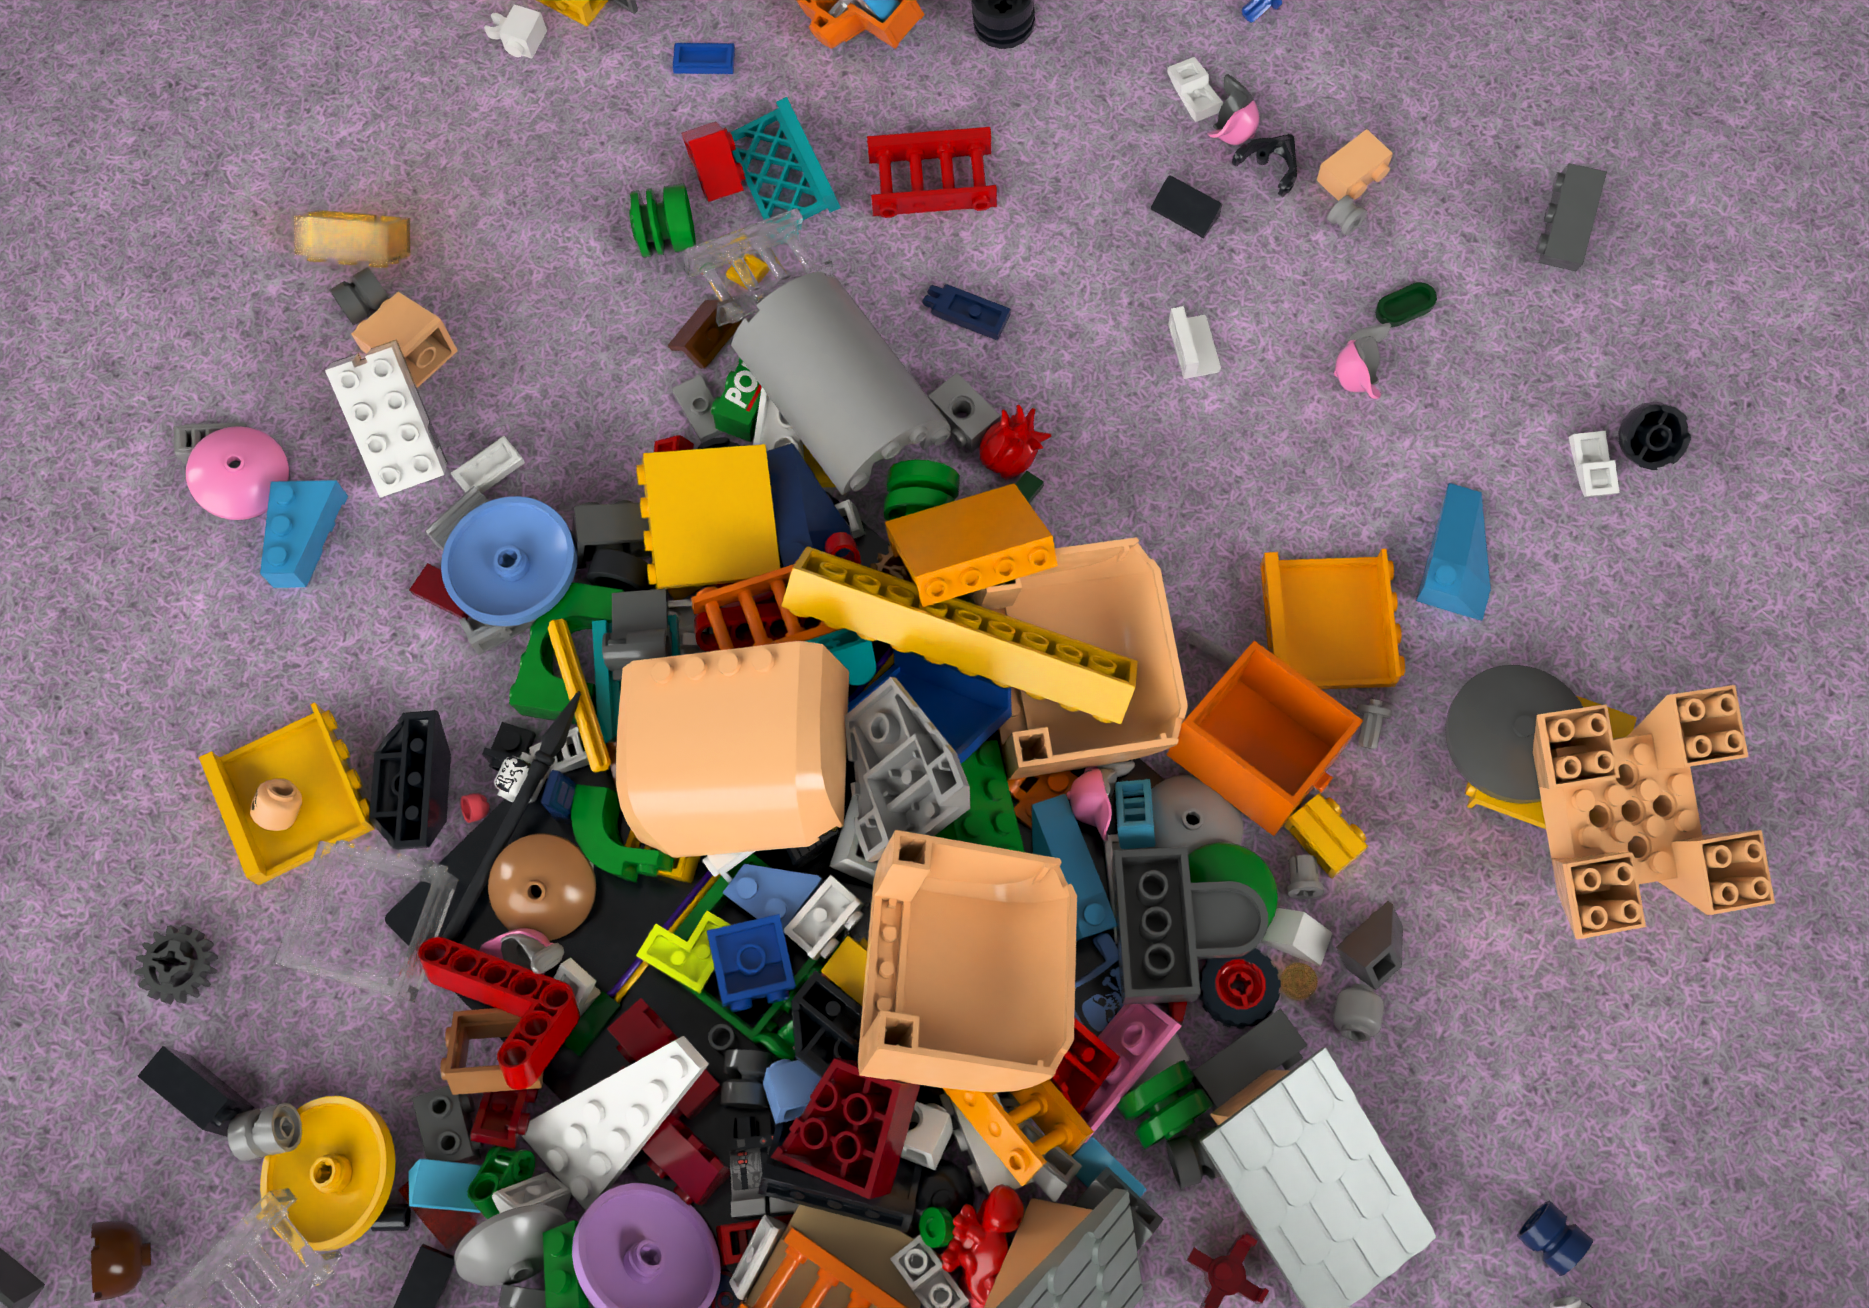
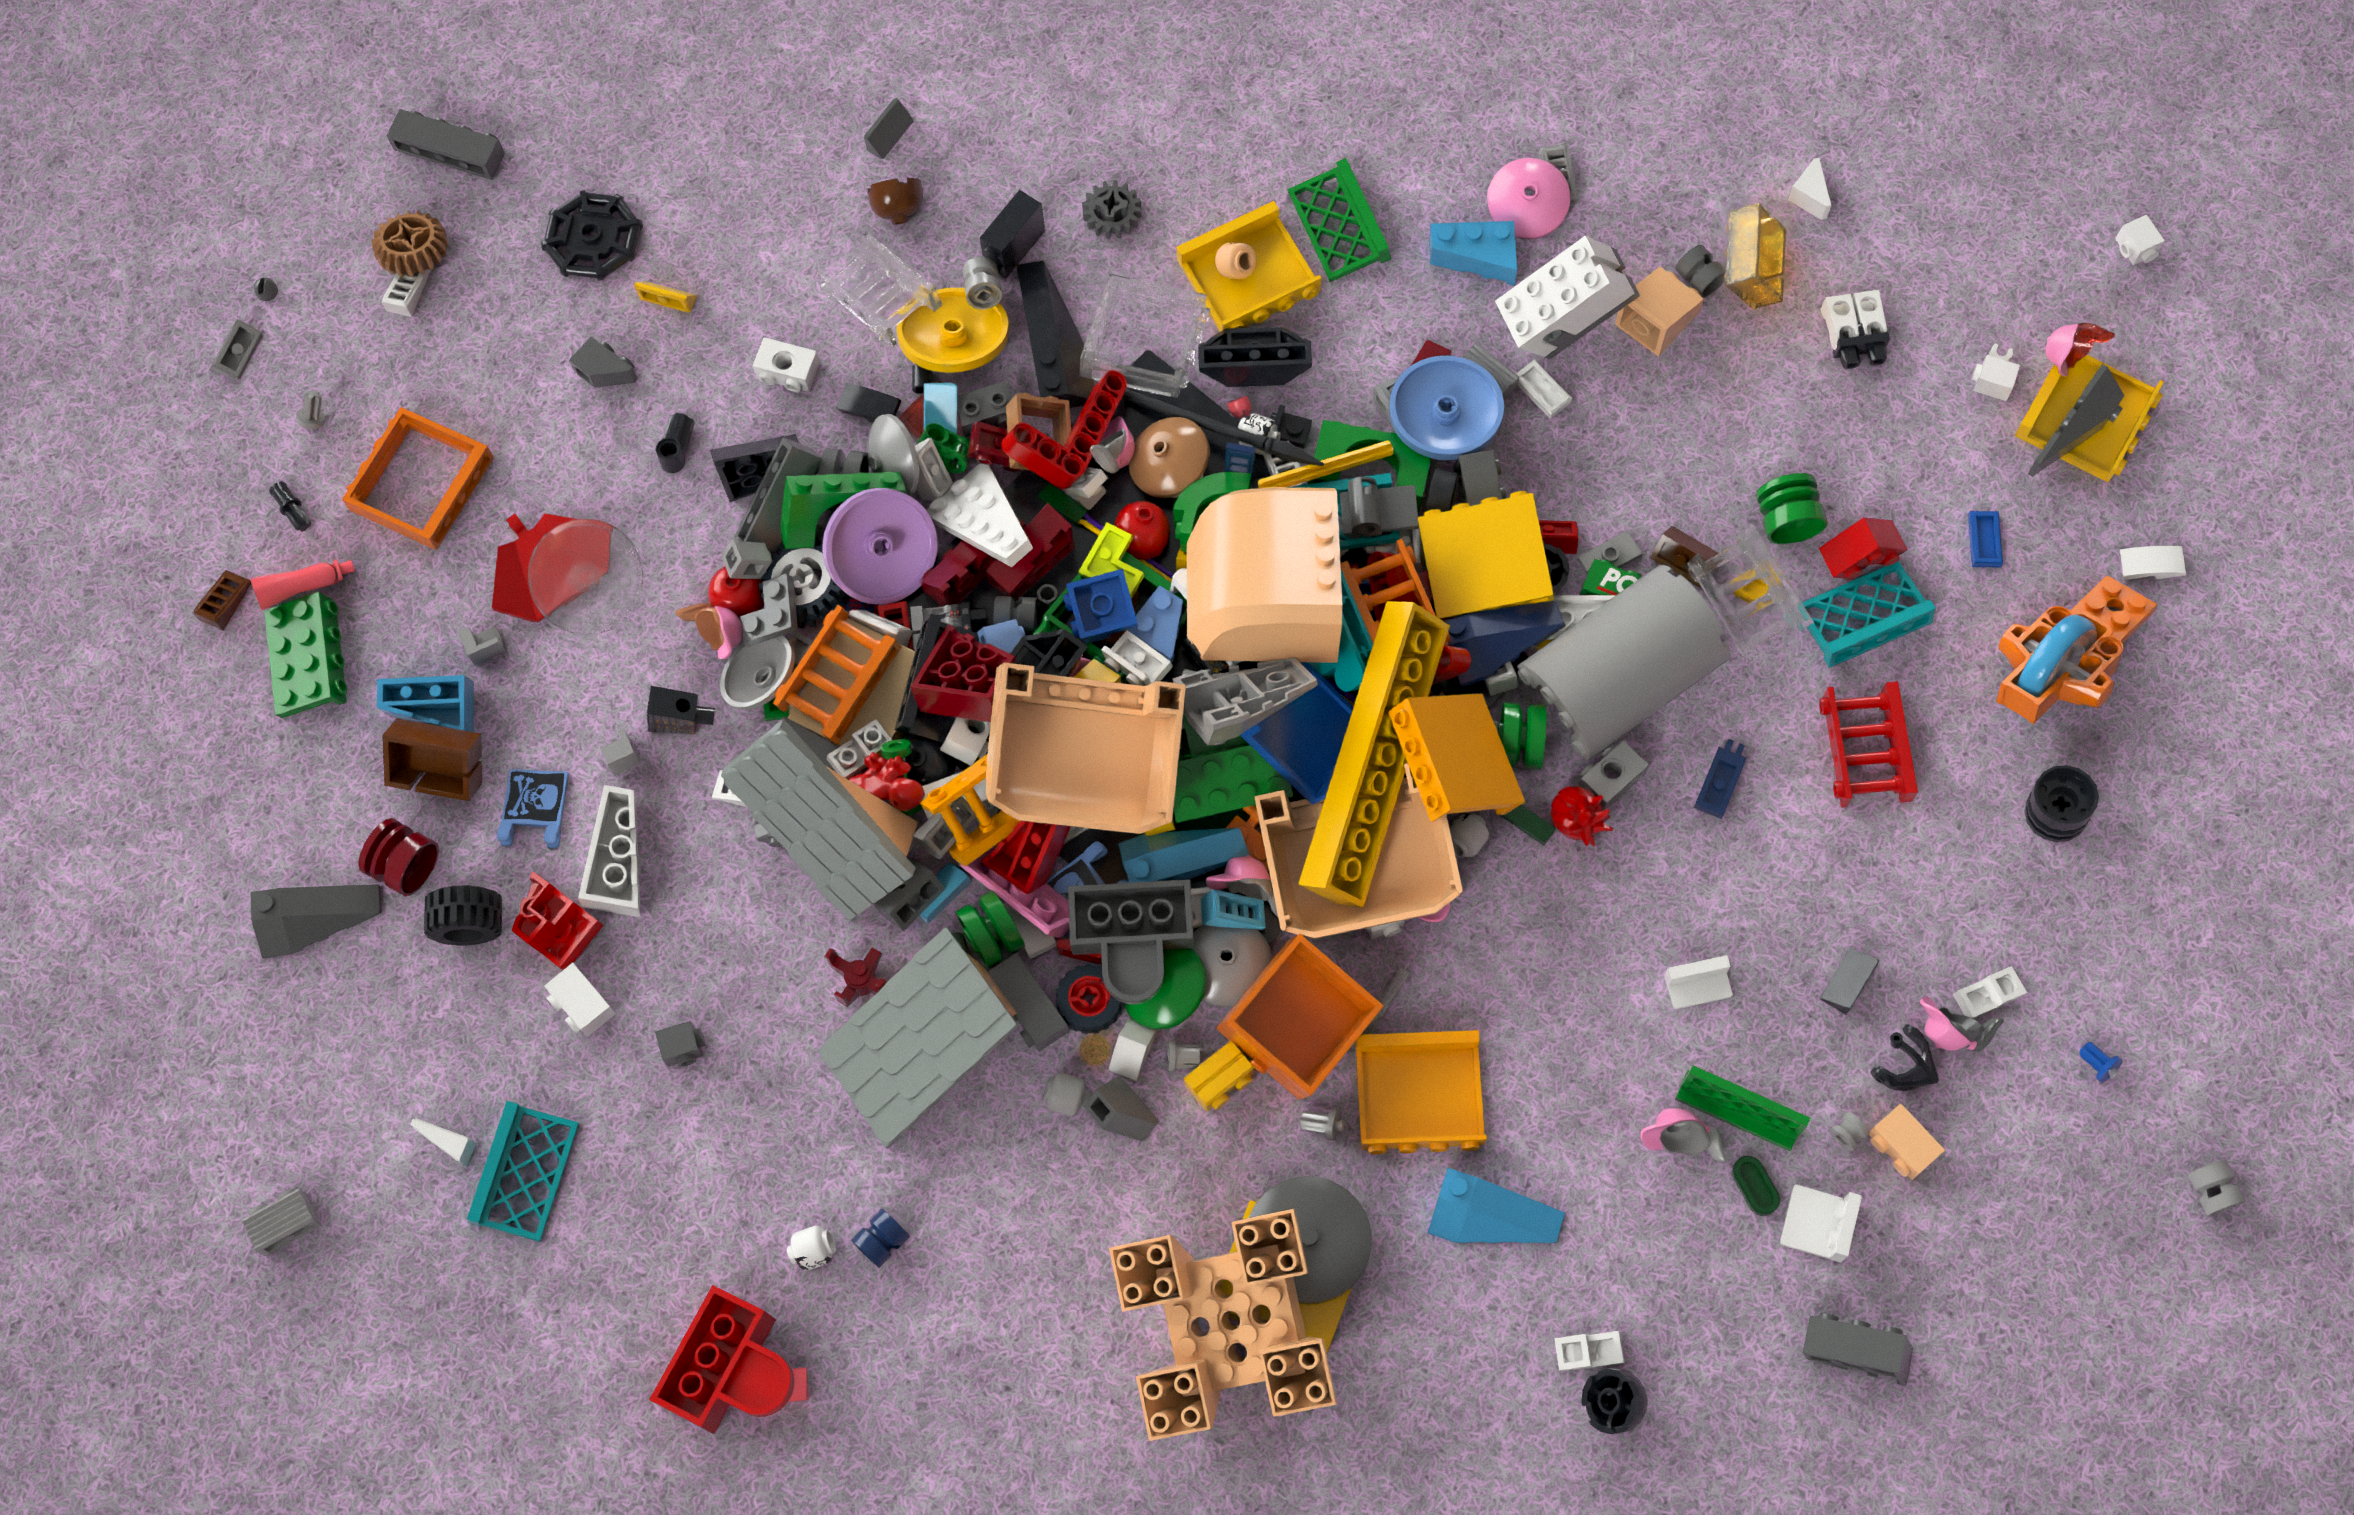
camera: 90 degrees right, 0 degrees up
(229, 657) = (1362, 217): none -> green fence
(275, 184) = (1811, 191): none -> white slope
(356, 1040) = (1052, 337): none -> black wedge
(449, 152) = (1856, 328): none -> white hips
(632, 916) = (1147, 526): none -> red cylinder
(1331, 309) = (1741, 1108): none -> green fence
(1444, 242) = (1820, 1223): none -> white bracket

